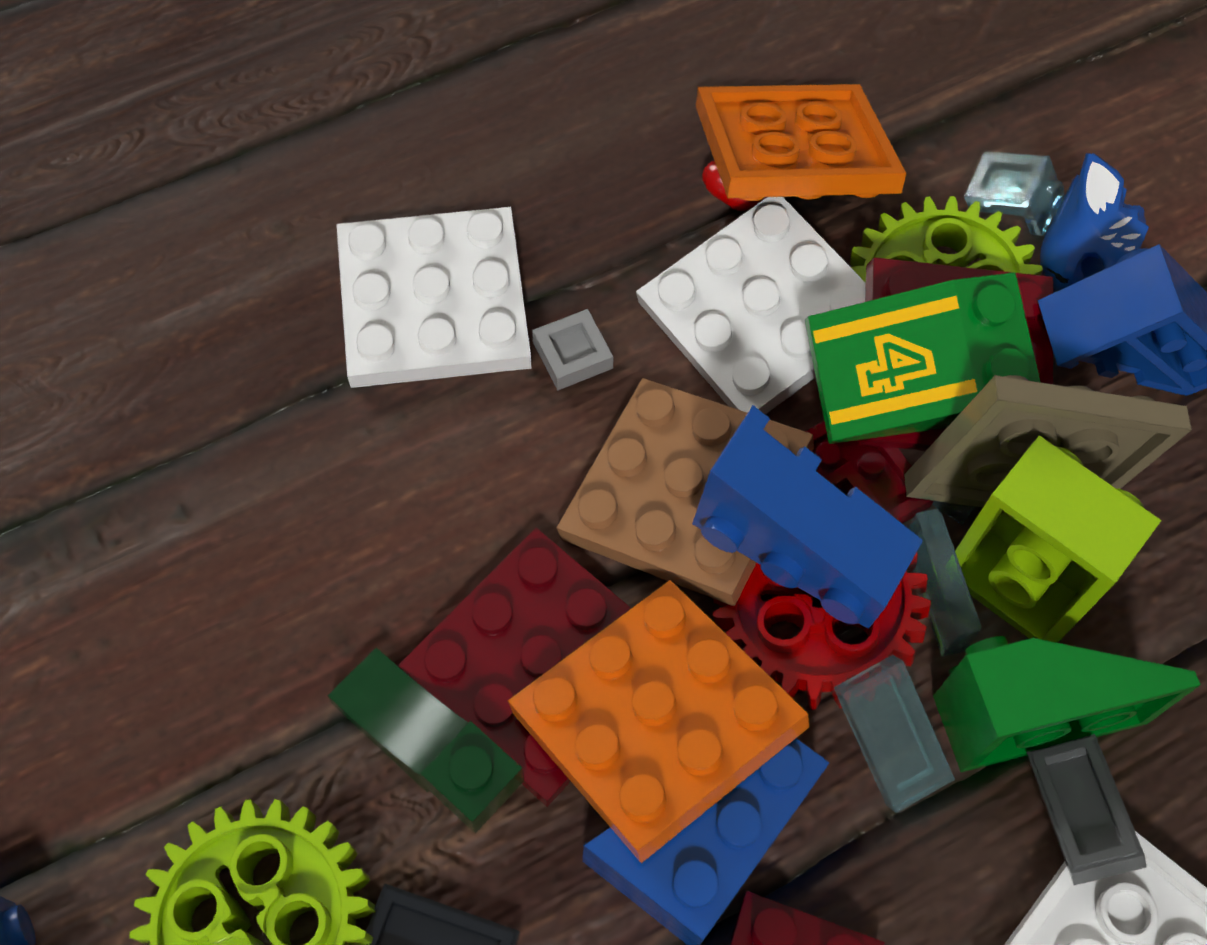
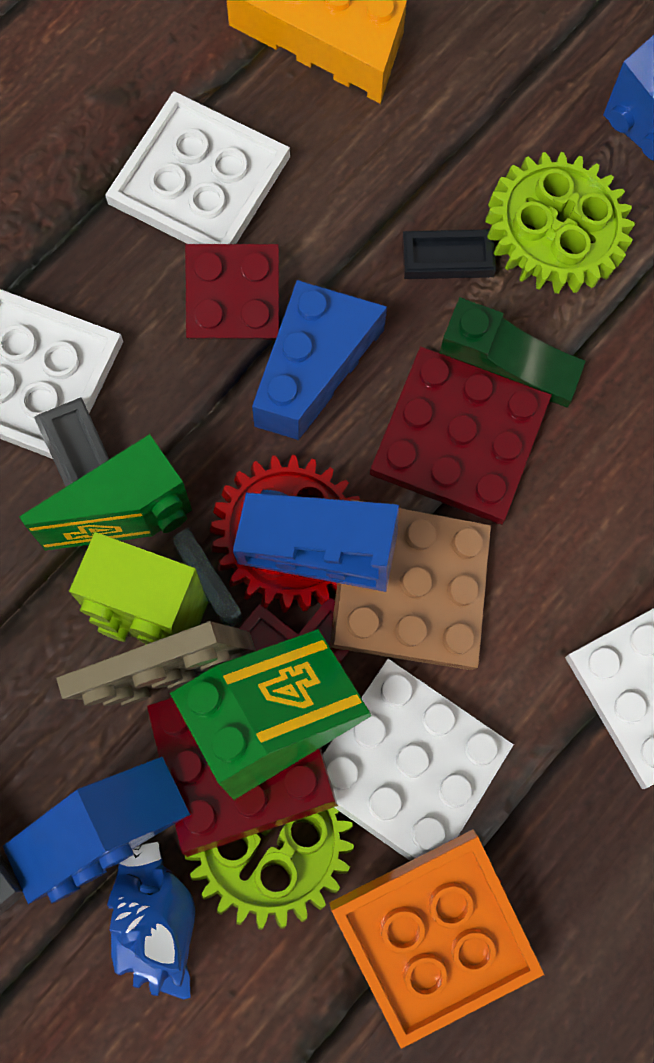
camera: 160 degrees right, 10 degrees up
(572, 349) = (540, 672): light grey plate -> none
(658, 718) = (372, 398): orange plate -> none
(894, 733) = (214, 454): clear light blue tile -> none
(1017, 186) = (228, 976): clear light blue bracket -> none

